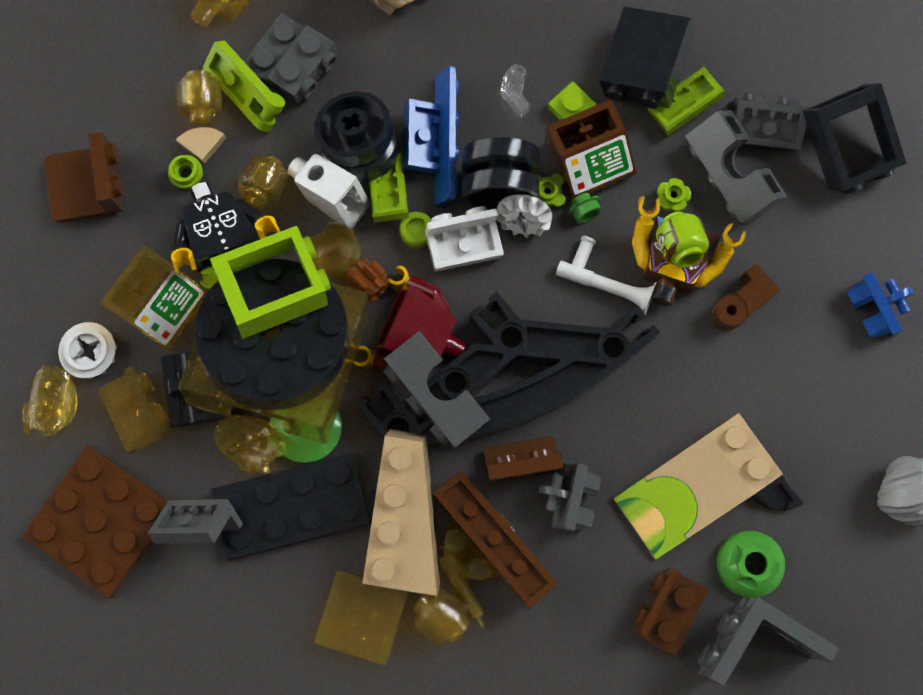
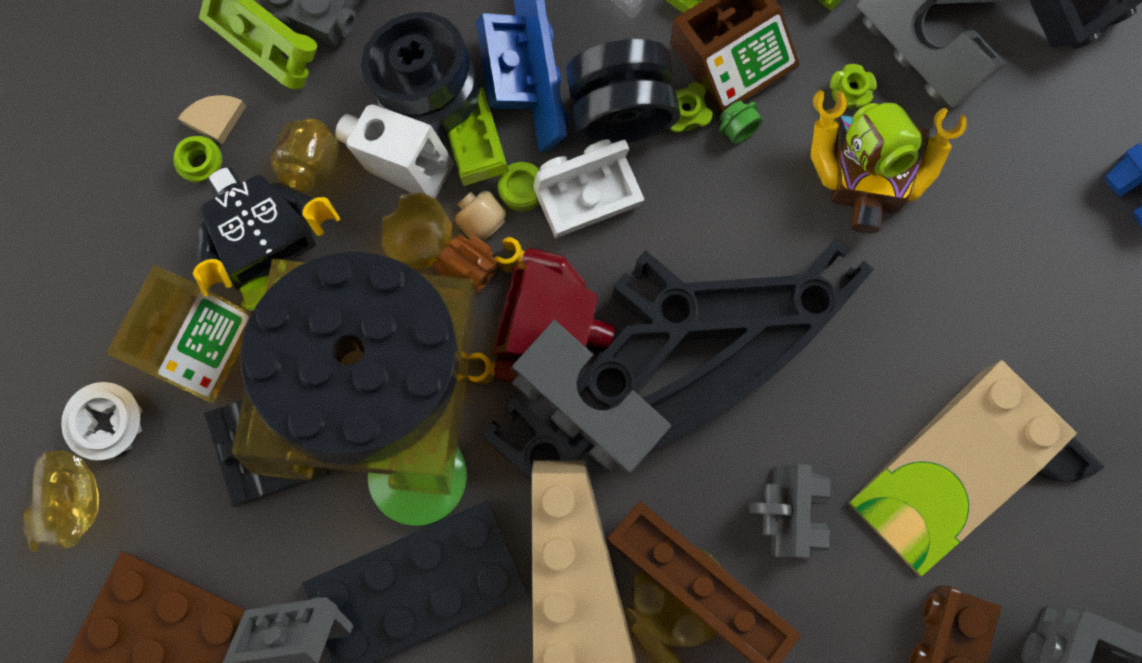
camera: 10 degrees left, 0 degrees up
(84, 181) = (62, 192): reddish brown bracket -> none
(133, 410) = (179, 492): clear yellow bracket -> none
(199, 96) = (199, 55): clear yellow head -> none
(249, 442) = (343, 510): clear yellow hat -> none
(284, 308) = (359, 321): lime window -> none
(383, 245) = (480, 215): none -> tan piece
(522, 459) = (719, 471): reddish brown bracket -> none
(536, 213) = (675, 132): white gear -> none
(575, 272) = (747, 210): white piece -> none
(732, 564) = (1026, 566): bright green piece -> none
(736, 308) = (967, 221): reddish brown leg -> none

